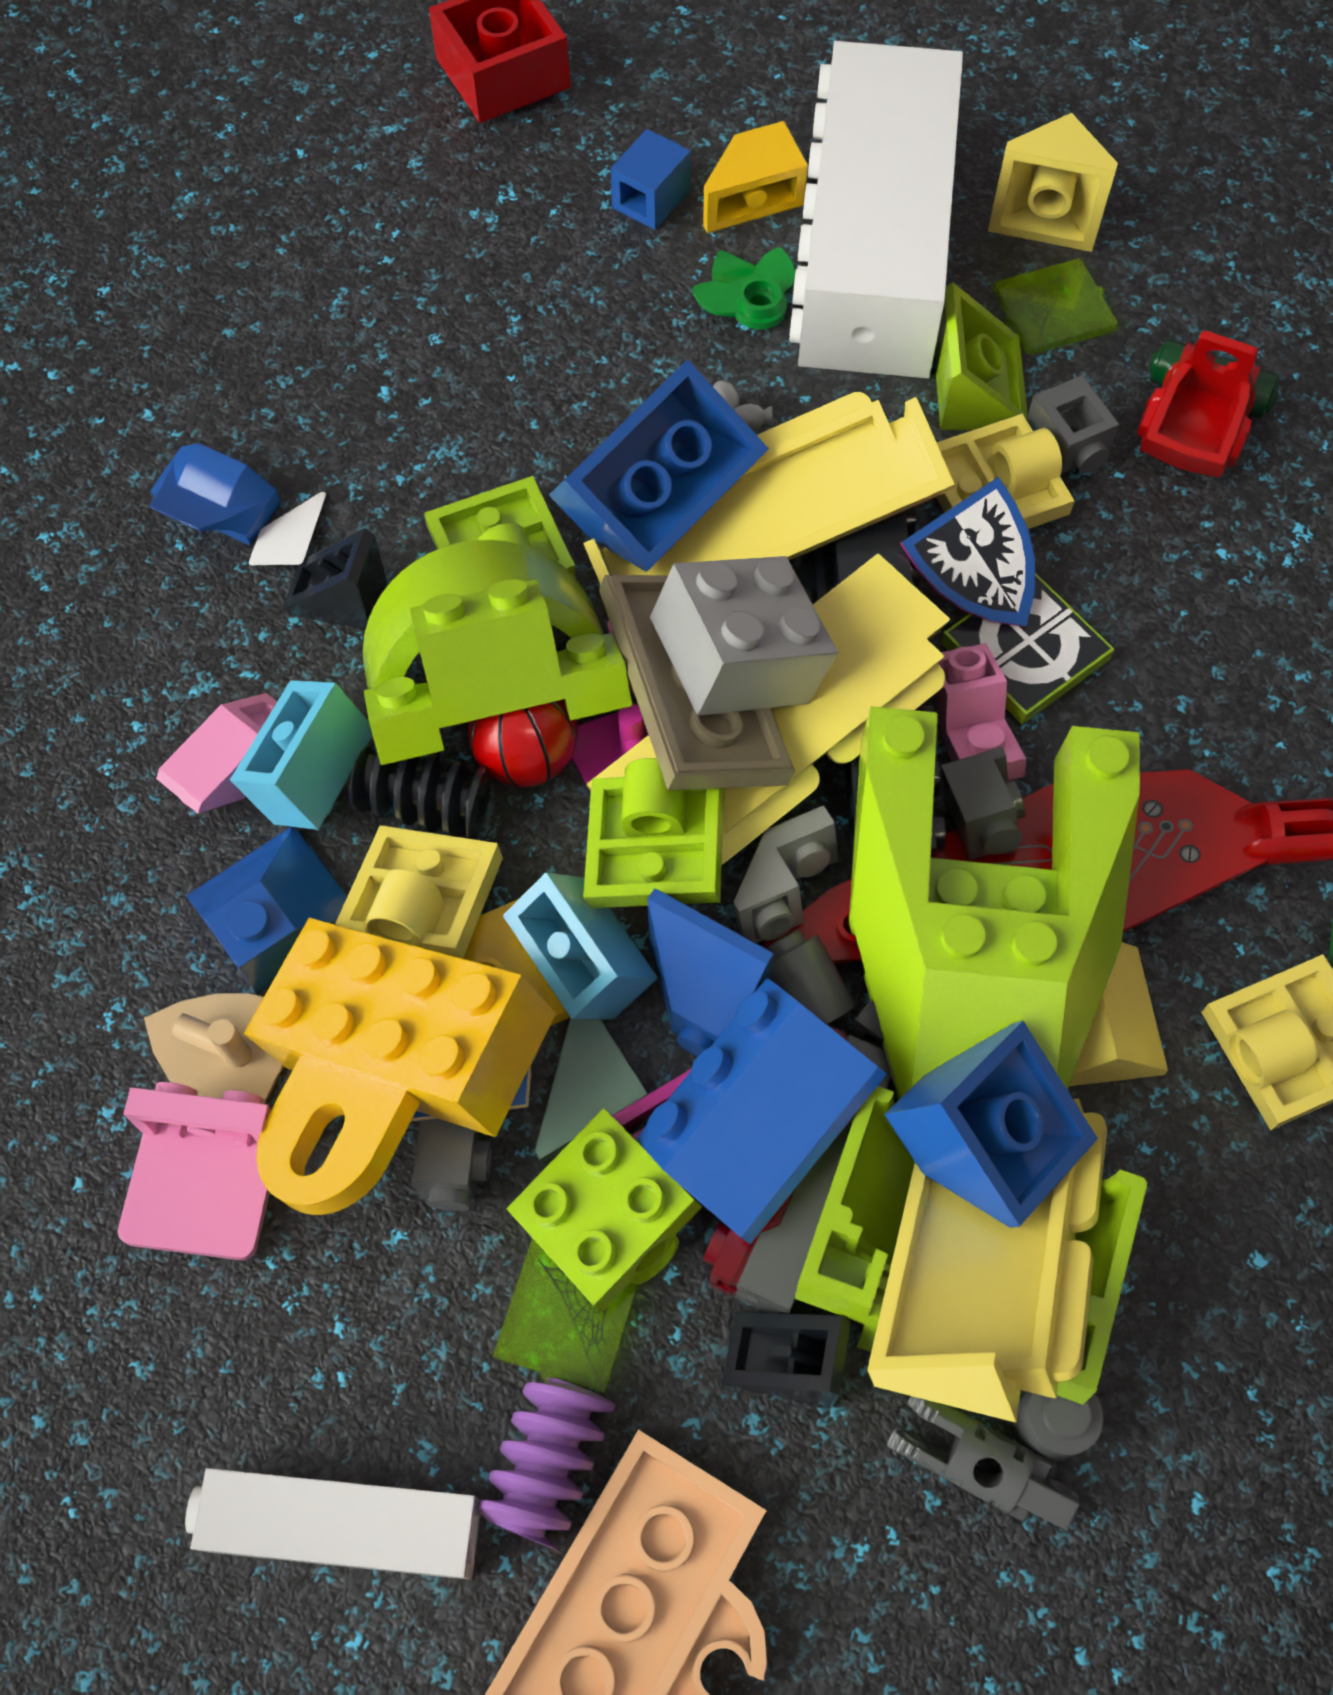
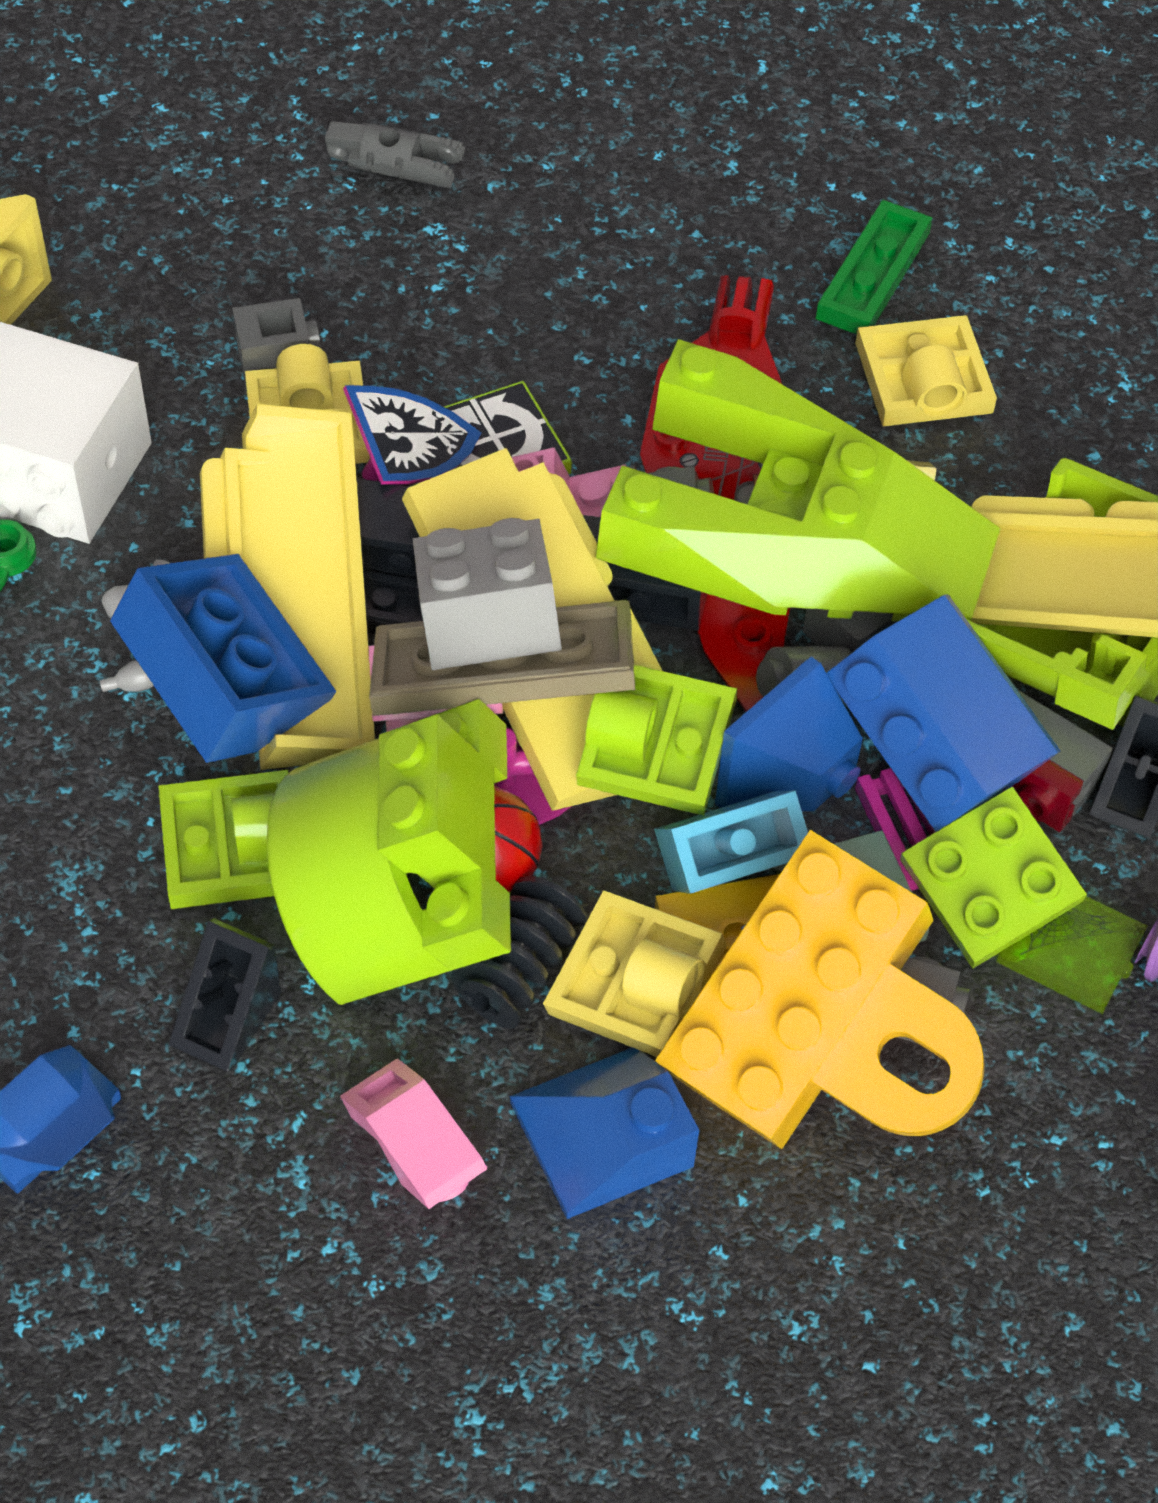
camera: 80 degrees left, 10 degrees down
(195, 1172) = (892, 1227): bright pink bracket -> none
(205, 1046) = (751, 1203): tan shield -> none
(289, 536) = (129, 1051): white sticker -> none
(303, 754) = (448, 1049): medium azure brick -> none
(769, 895) = (708, 665): light grey slope -> none
(976, 366) = (188, 403): lime slope -> none
(994, 1125) = (996, 548): blue slope -> none
(1054, 306) = (112, 319): clear neon green piece -> none
(1204, 403) = (291, 240): red piece -> none

